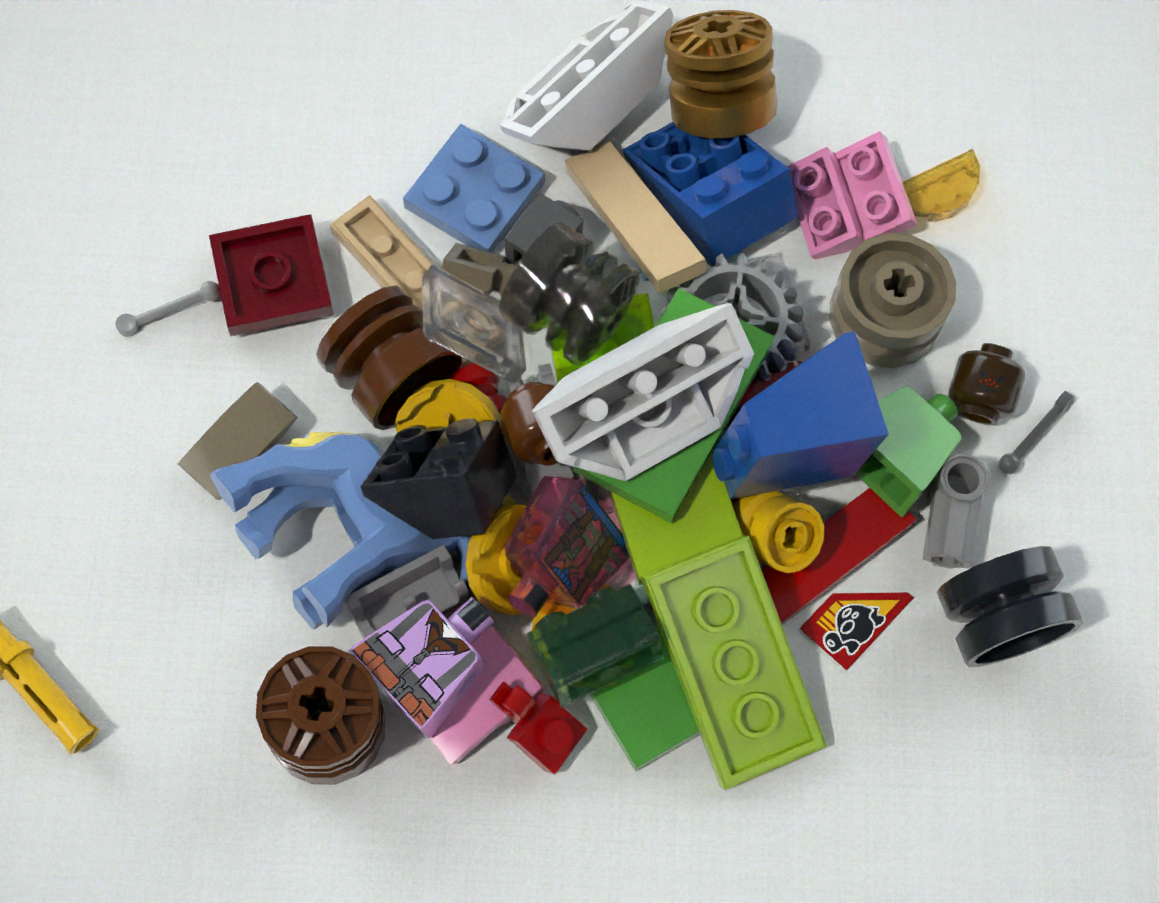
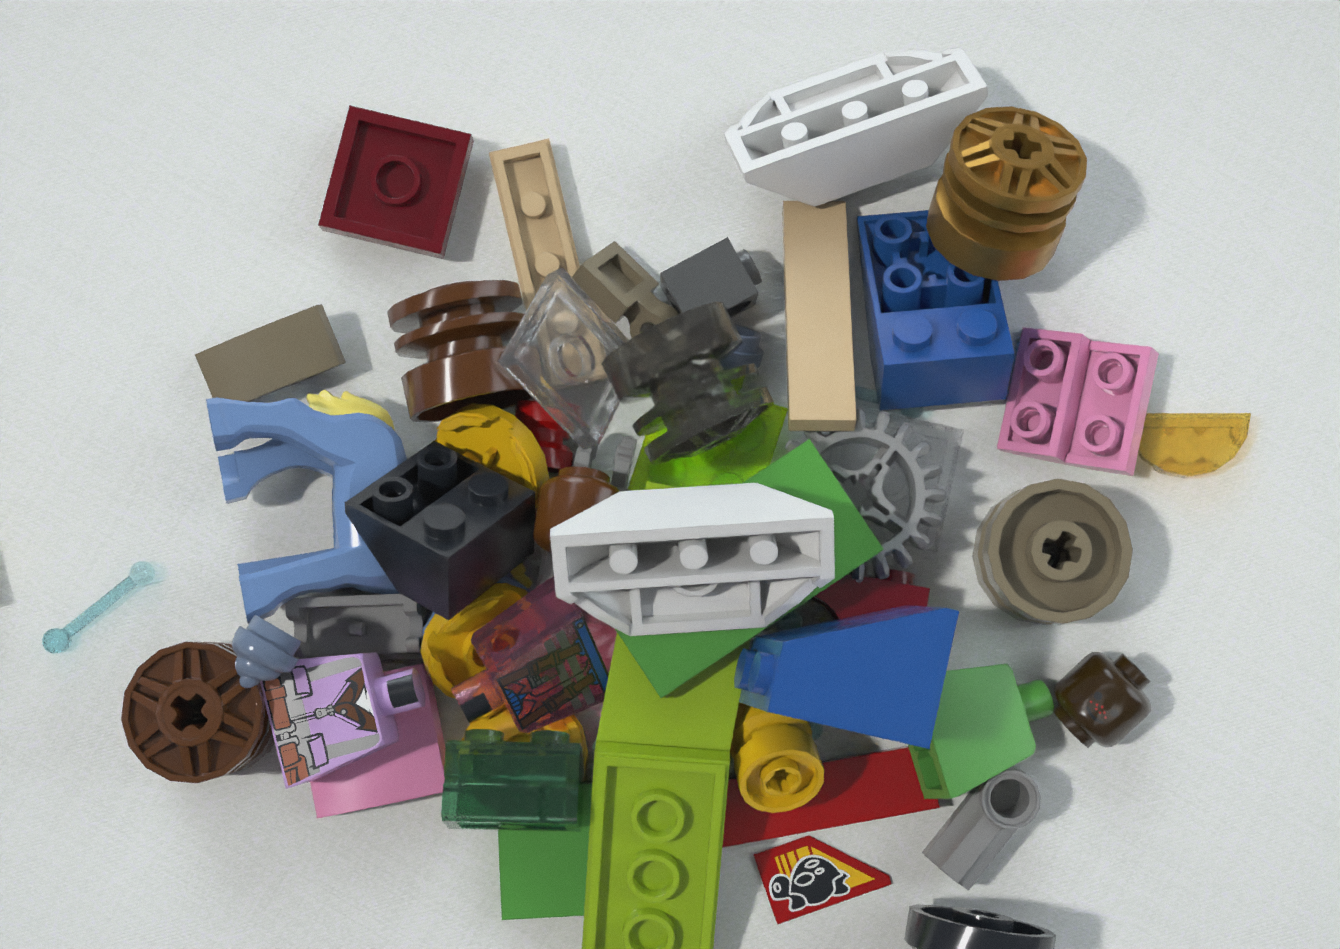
camera: 30 degrees right, 15 degrees up
(129, 324) = (225, 163): light grey hinge -> none
(169, 736) = (59, 639): none -> clear light blue hinge
(352, 626) = (263, 652): none -> sand blue plate
(474, 190) = (667, 186): medium blue plate -> none
(541, 728) = (418, 829): red plate -> none
(1010, 462) = (1079, 794): dark grey hinge -> none

